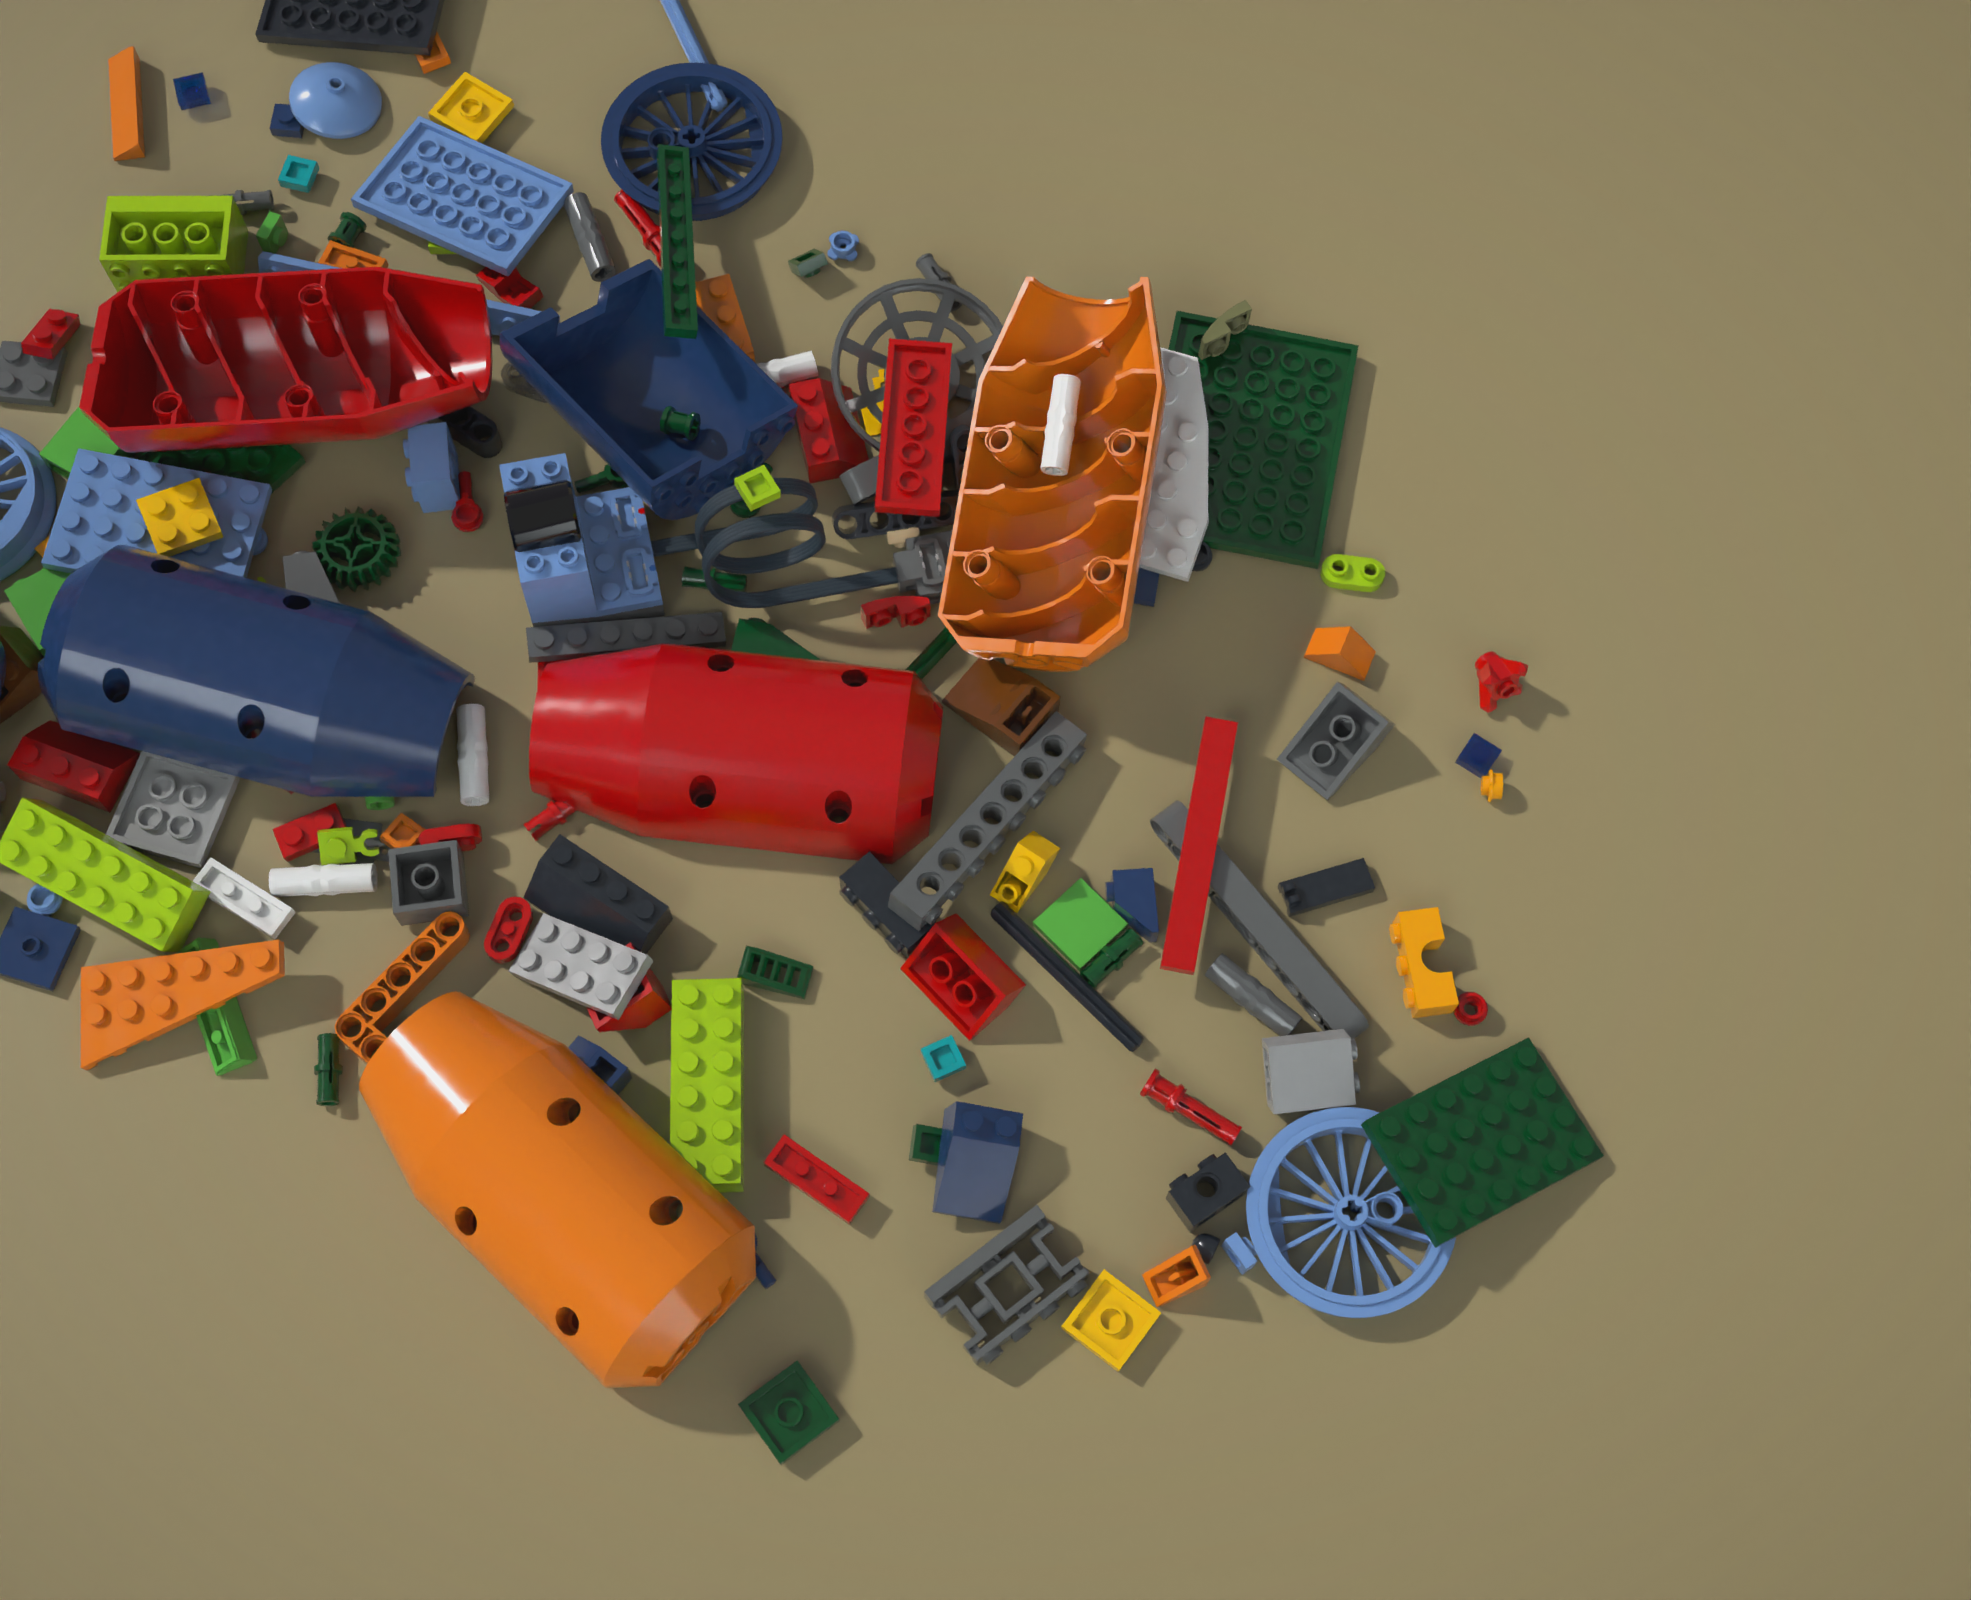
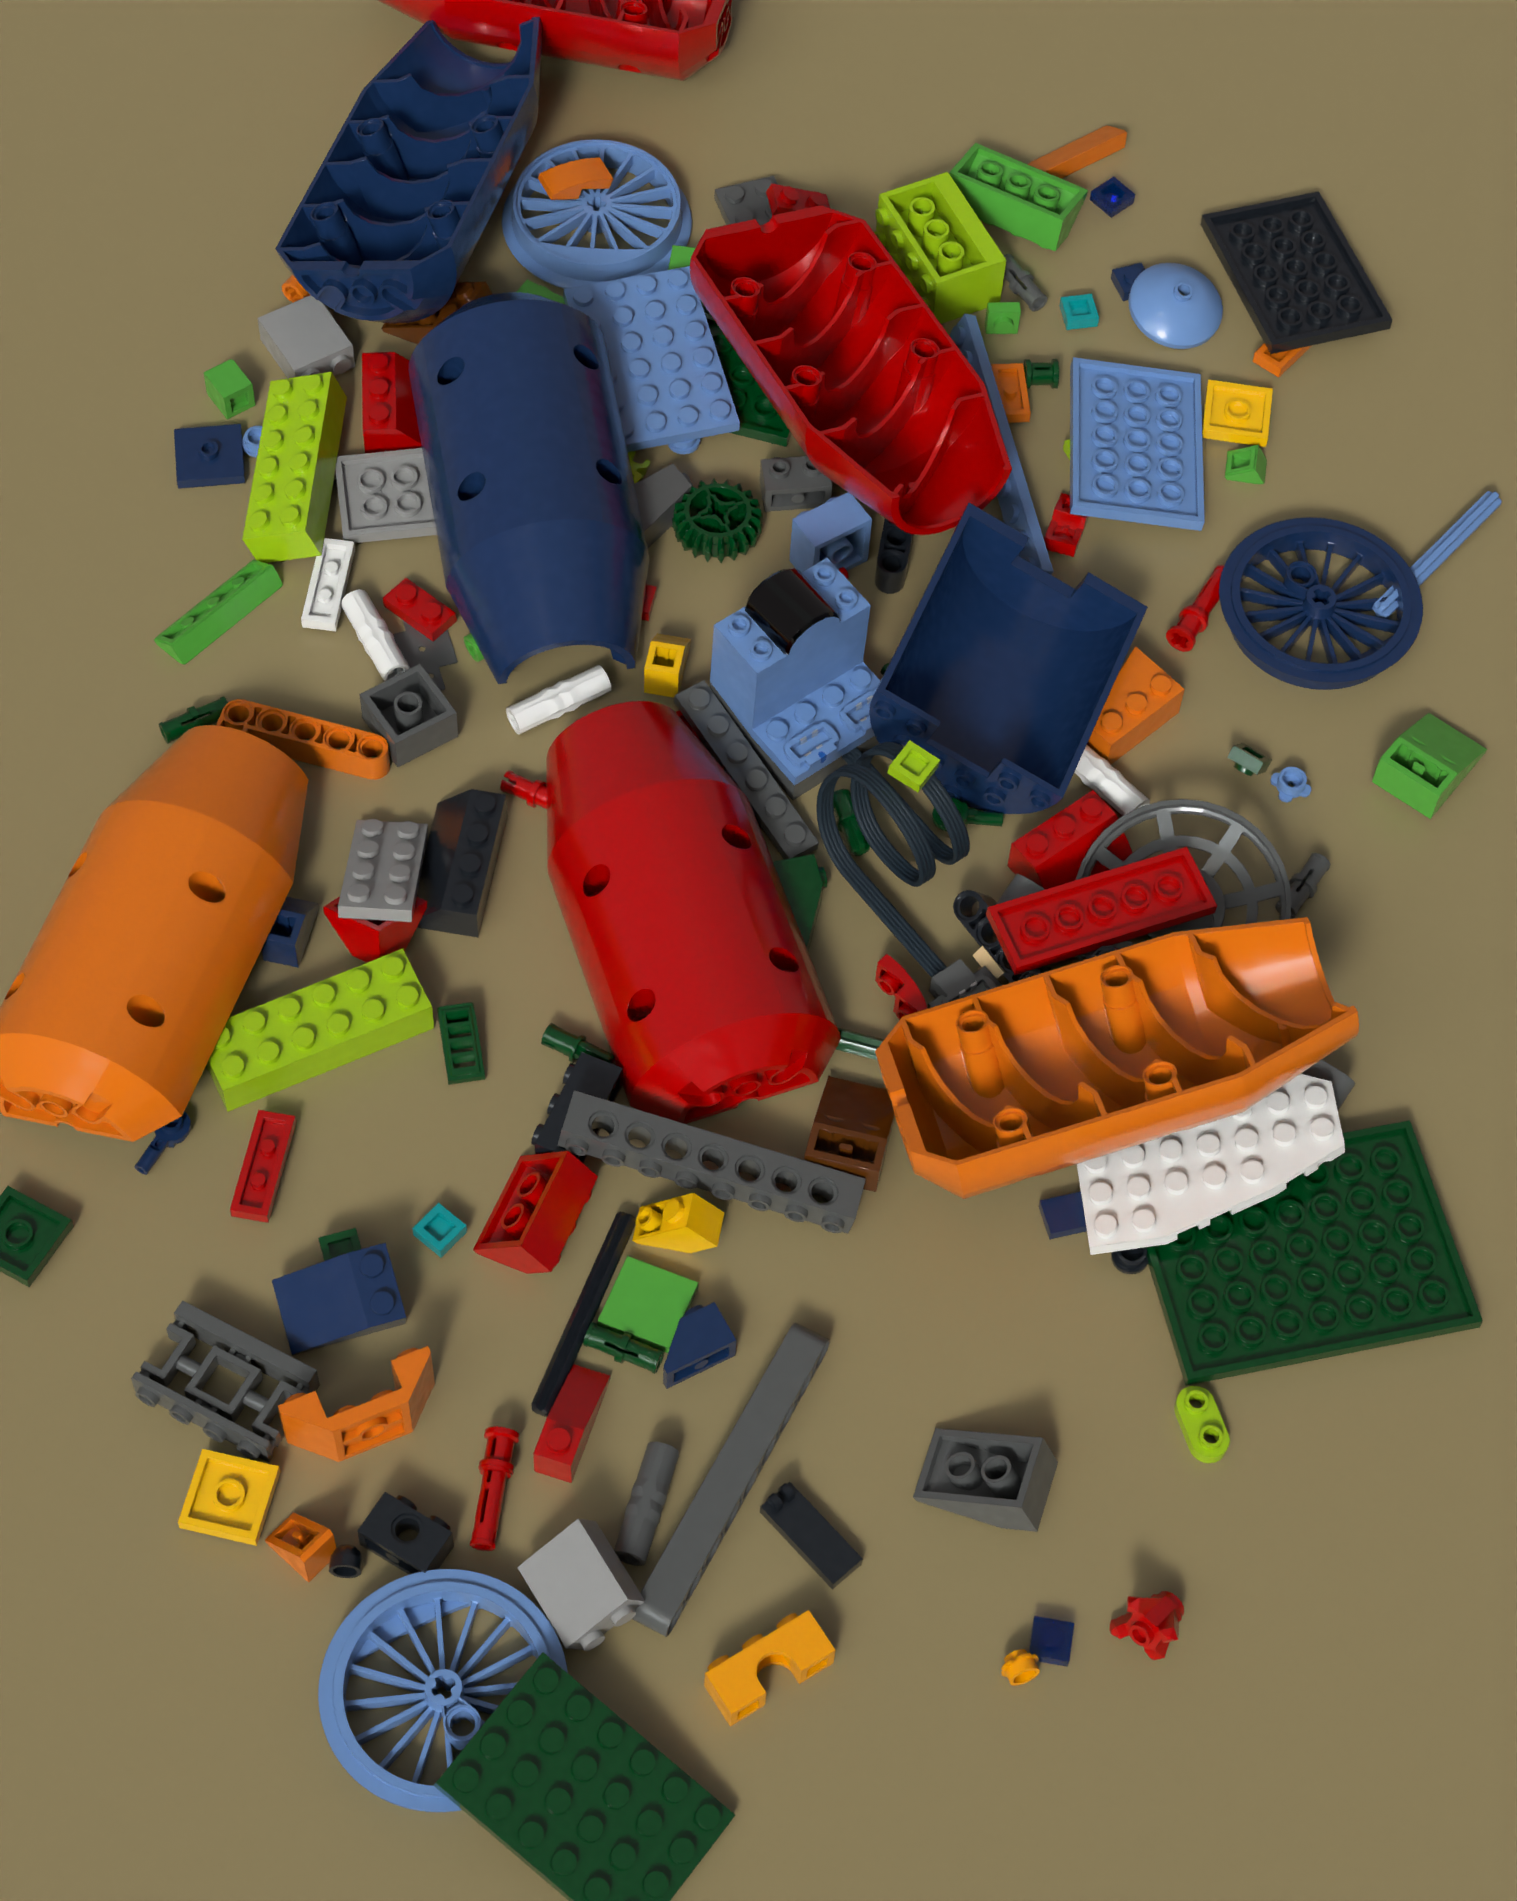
camera: 65 degrees right, 10 degrees down
(152, 158) = (1018, 196): none -> bright green slope
(157, 994) = (207, 560): orange wing -> none
(179, 518) = (661, 367): yellow plate -> none
(341, 845) = (414, 637): lime plate -> none
(351, 472) = (792, 484): none -> dark grey brick
(402, 833) = (453, 681): orange tile -> none
(466, 835) = (469, 721): red plate -> none
(484, 651) = (665, 665): none -> yellow slope
(508, 931) = (397, 802): red plate -> none
(523, 130) = (1246, 465): none -> bright green slope
(589, 237) = (1161, 563): dark grey axle -> none
(676, 242) = (1179, 620): dark green plate -> none
(680, 423) = (999, 721): dark green bush -> none
(821, 882) = (572, 1045): none -> dark green axle
(878, 142) = (1427, 764): none -> bright green slope
(1060, 425) = (1169, 1029): white axle -> none
(1088, 1136) = (362, 1426): none -> orange slope
(1160, 1024) = (570, 1423): none -> red slope
(1199, 846) = (784, 1374): red tile -> none
(1218, 335) = (1395, 1164): olive slope -> none
(1240, 1252) = (352, 1593): medium blue plate -> none
(1341, 650) = (1098, 1448): orange slope -> none
(1479, 1005) = (741, 1728): red plate -> none

